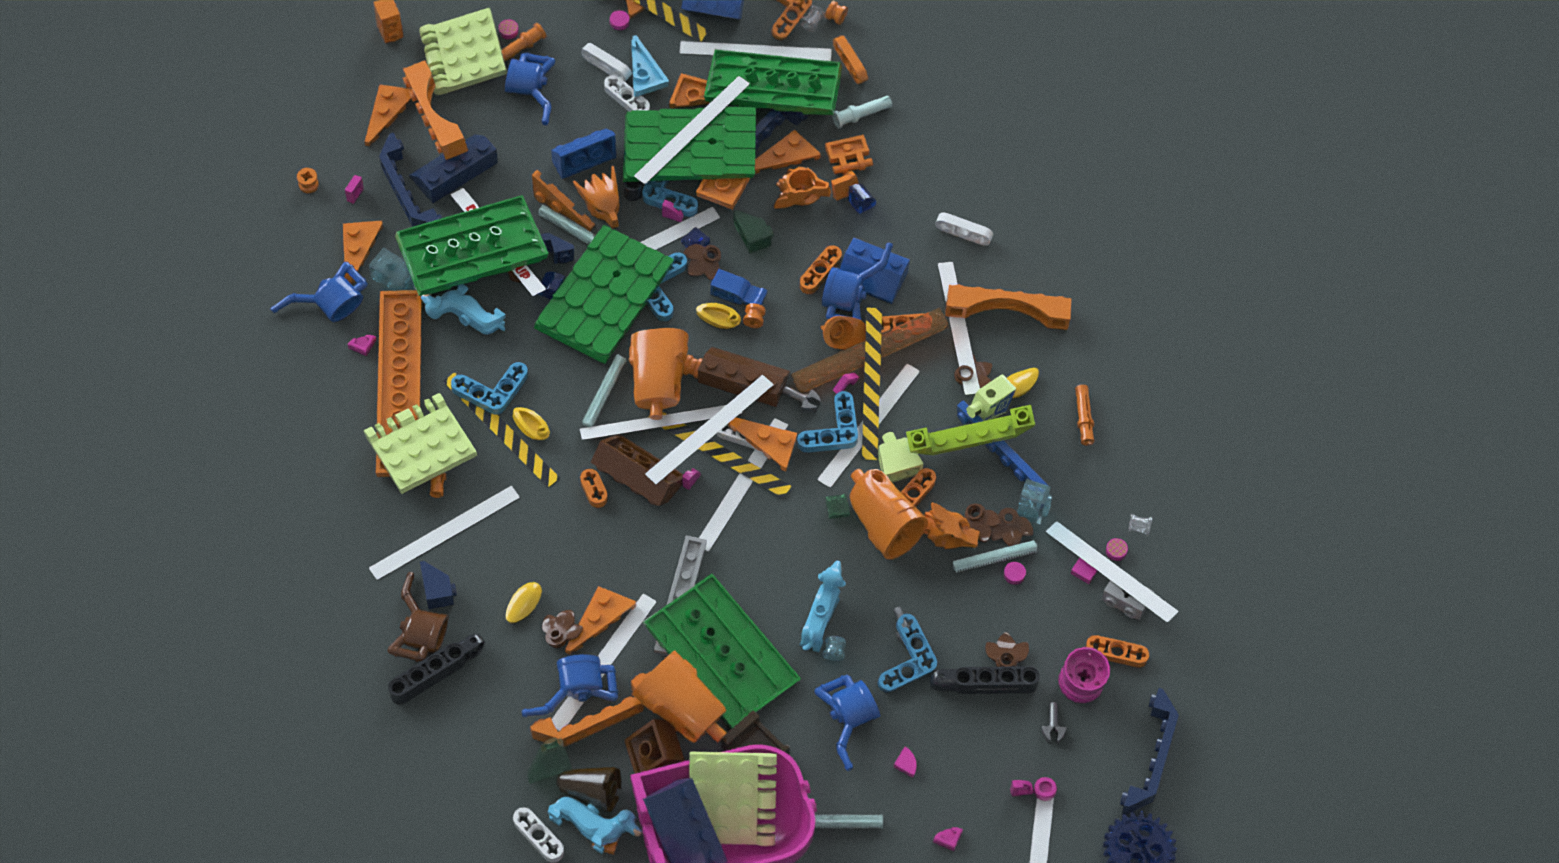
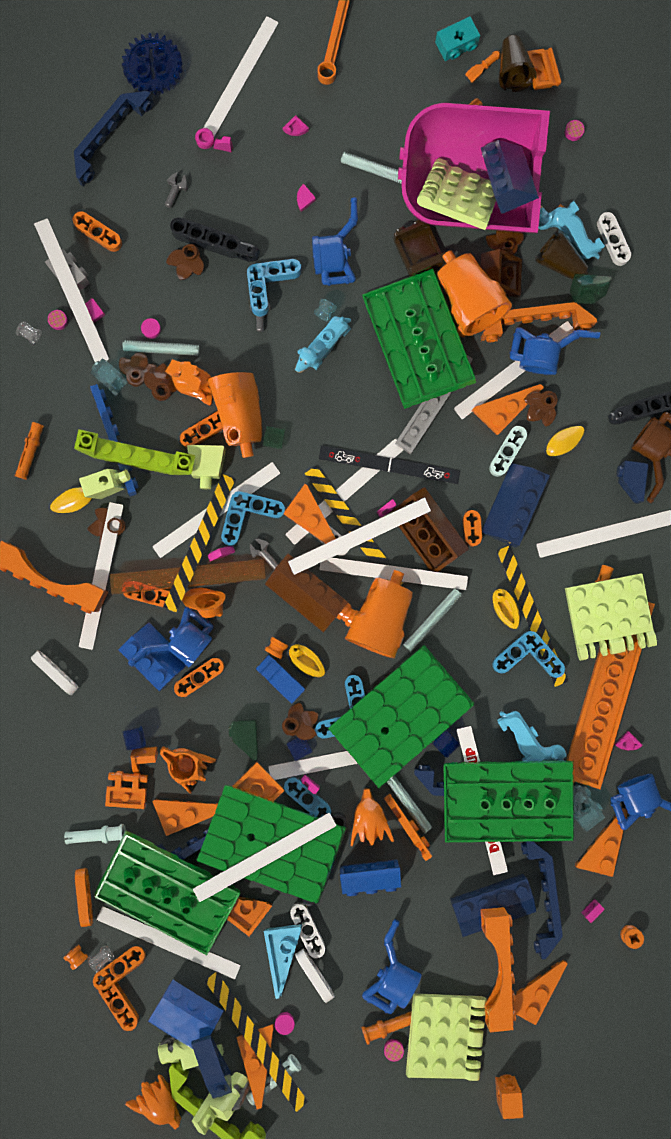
camera: 160 degrees left, 25 degrees up
(556, 522) = (515, 504): none -> dark blue slope
(584, 583) = (519, 442): none -> light aqua beam
(704, 523) = (389, 464): none -> black sticker
(1090, 665) = (134, 210): dark pink wheel -> none

